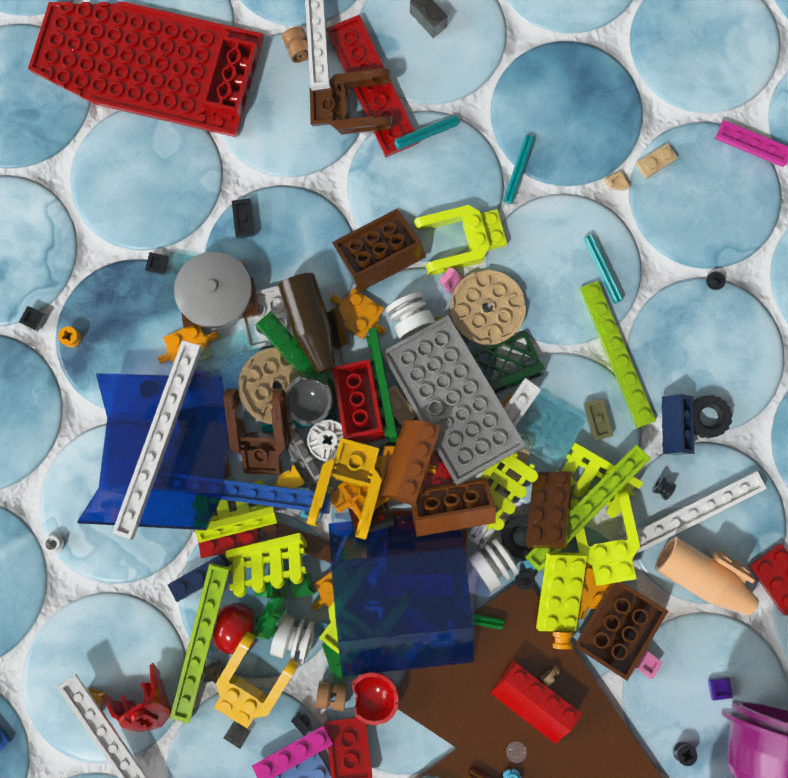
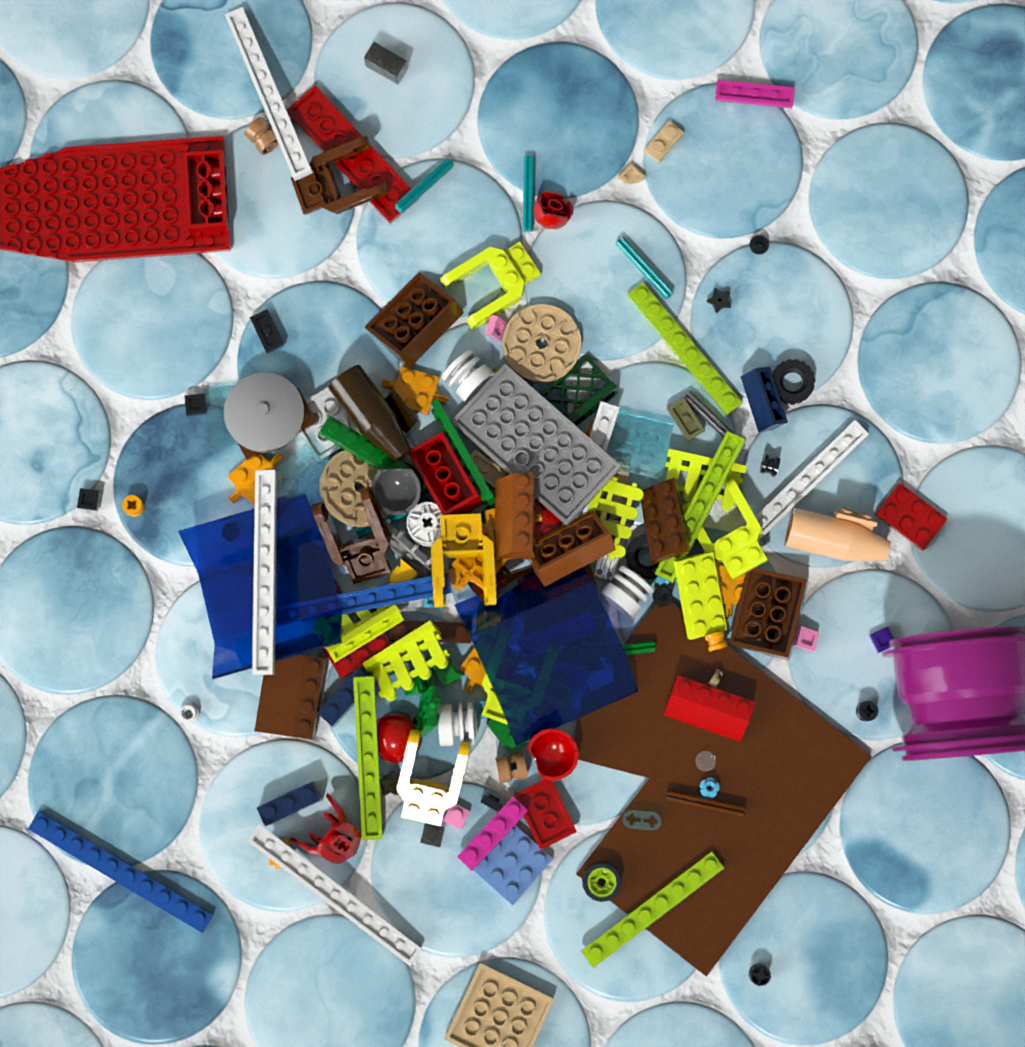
camera: 20 degrees left, 0 degrees up
(114, 661) = (289, 803): none -> dark blue brick
(151, 563) = (292, 698): none -> reddish brown slope
(265, 724) = (456, 816): none -> bright pink plate
(535, 190) = (552, 210): none -> red cylinder
(620, 422) = (717, 424): none -> dark grey axle
(663, 324) = (719, 295): none -> pearl dark grey plate

